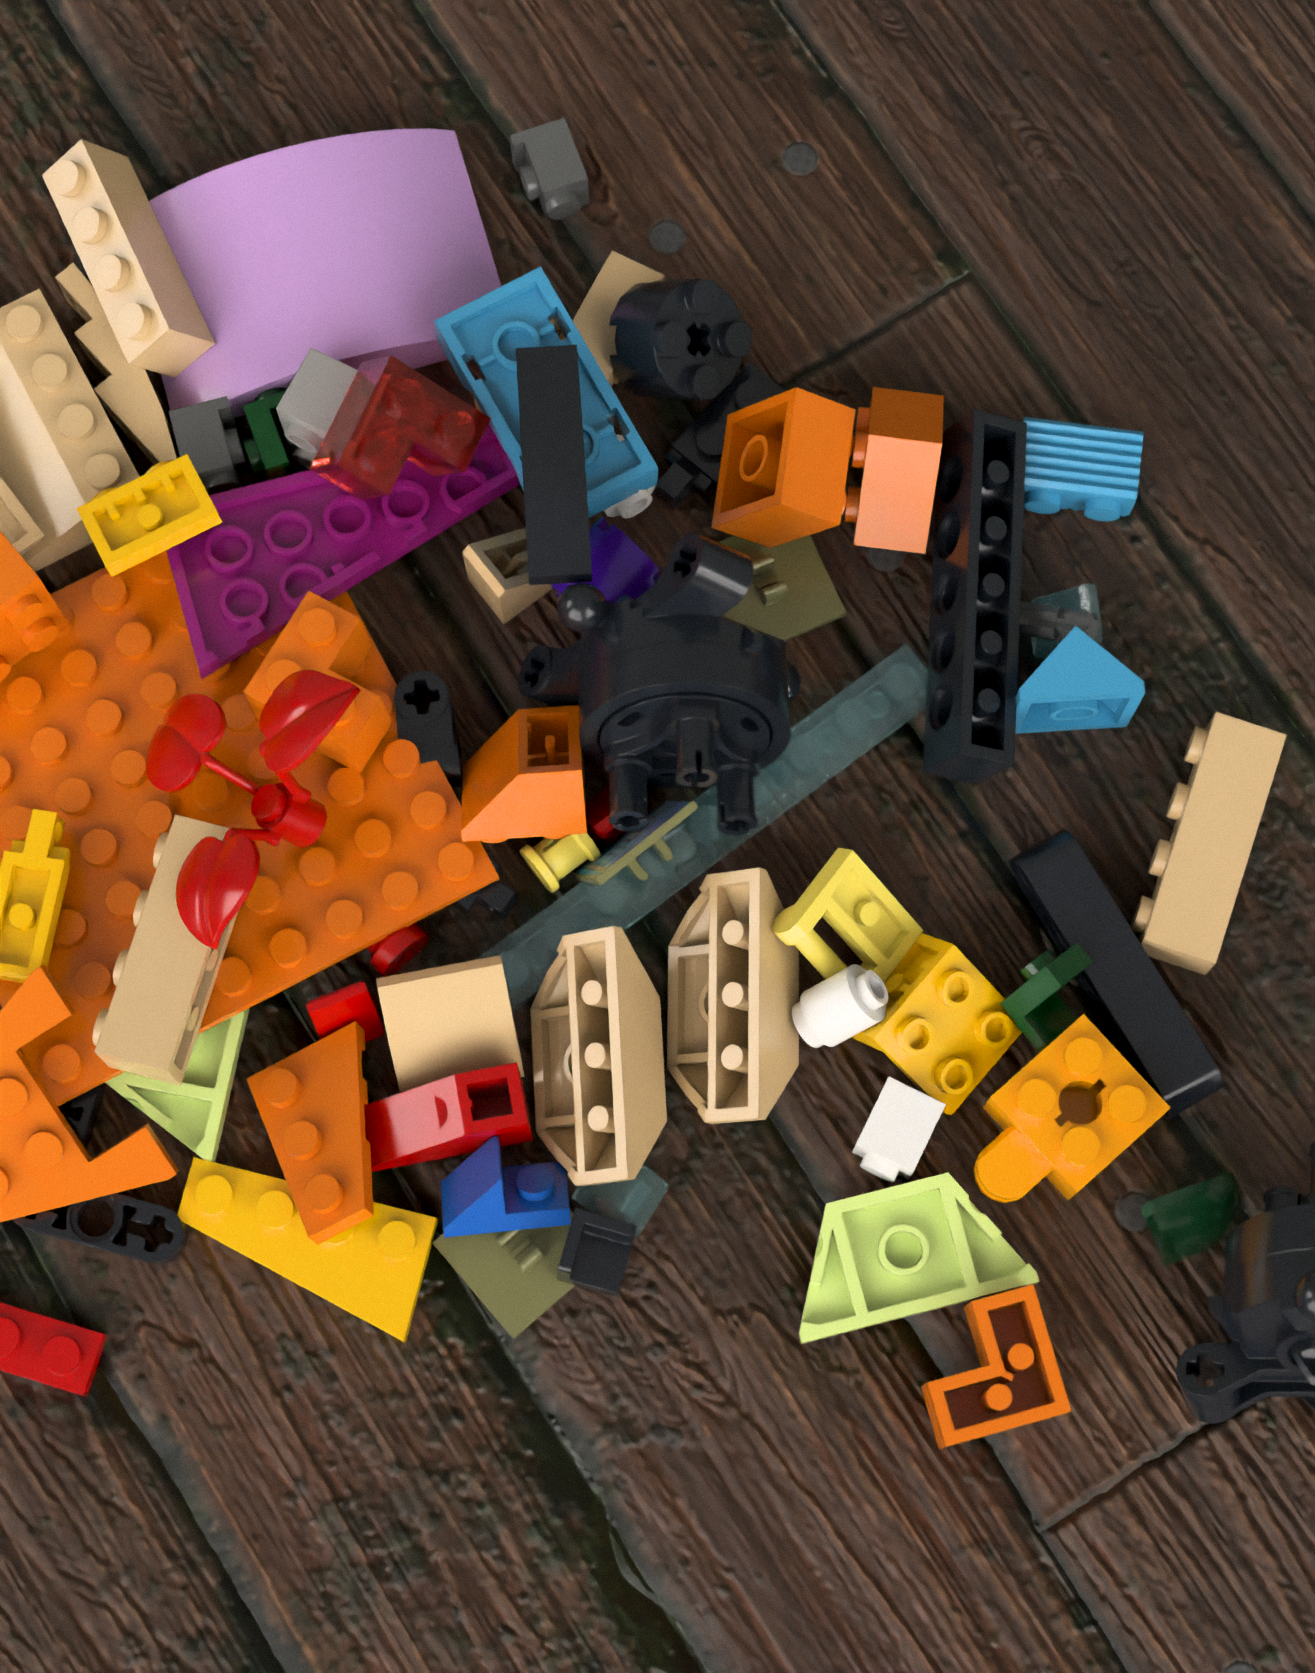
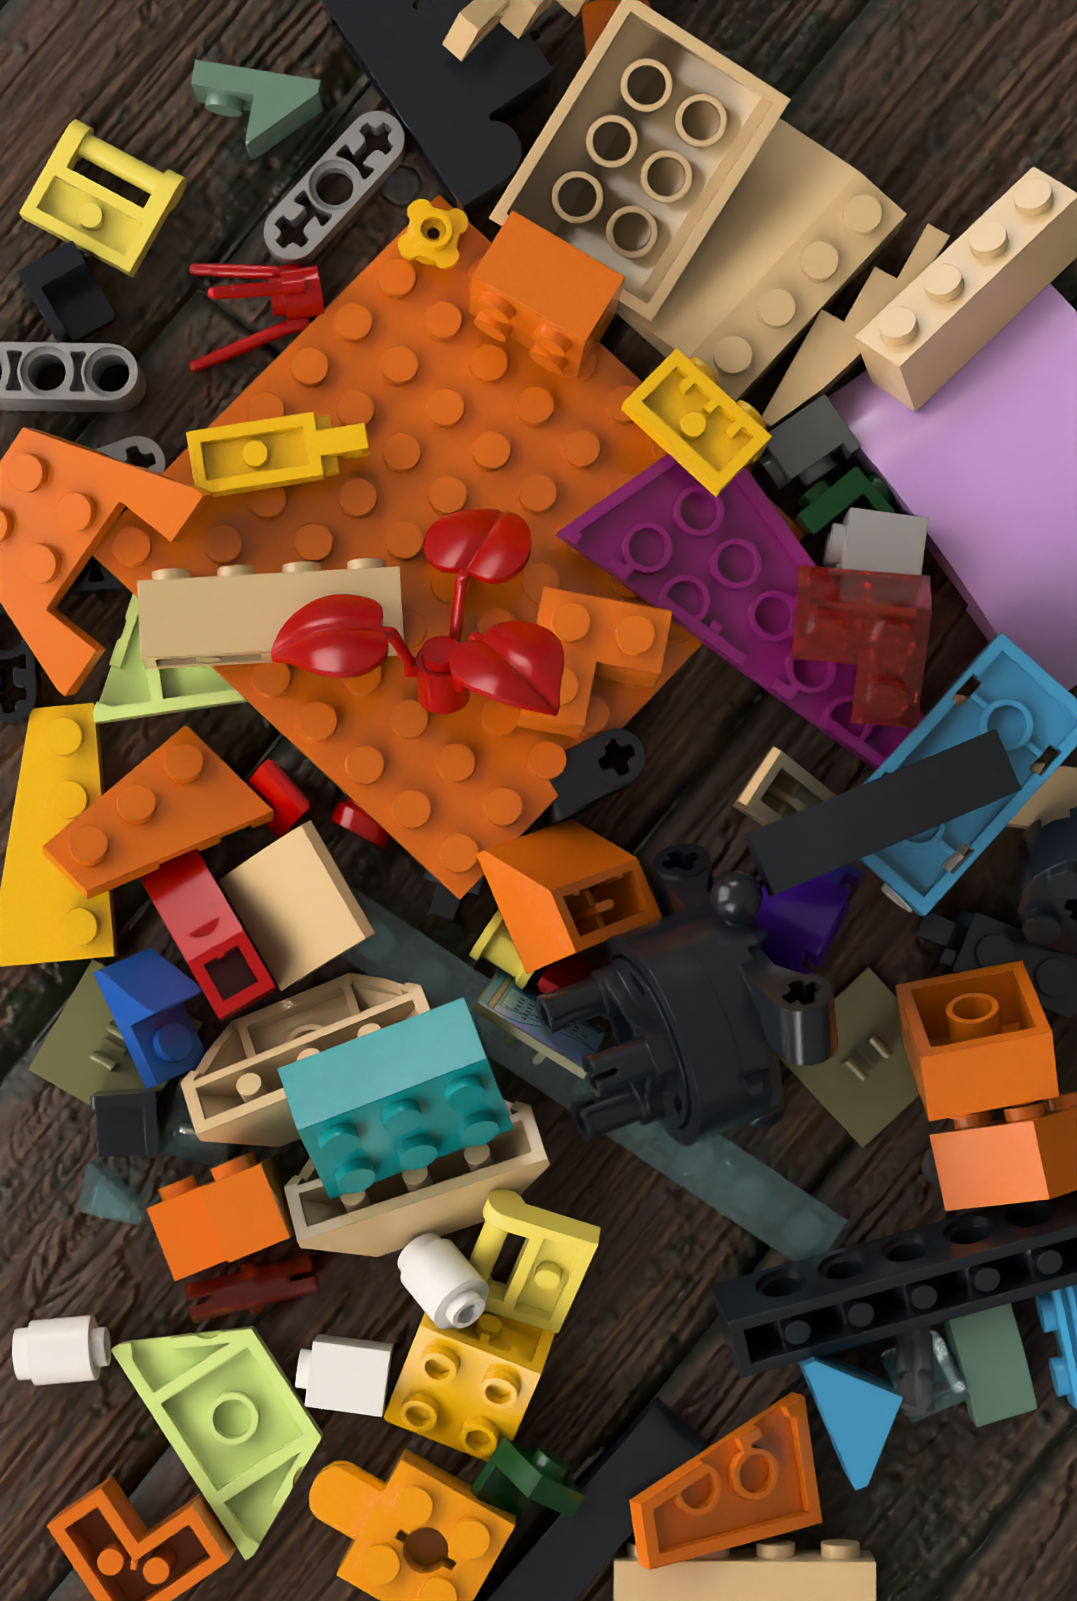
camera: 75 degrees right, 10 degrees up
(658, 981) = (395, 1099): none -> teal brick
(659, 1295) = (109, 1196): none -> clear light blue slope
(715, 1190) = (222, 1218): none -> orange brick
(787, 1391) = (61, 1350): none -> white brick
(789, 1193) = (252, 1288): none -> clear red pin
(1070, 558) = (991, 1364): none -> sand green slope
(1114, 816) = (733, 1492): none -> orange wing

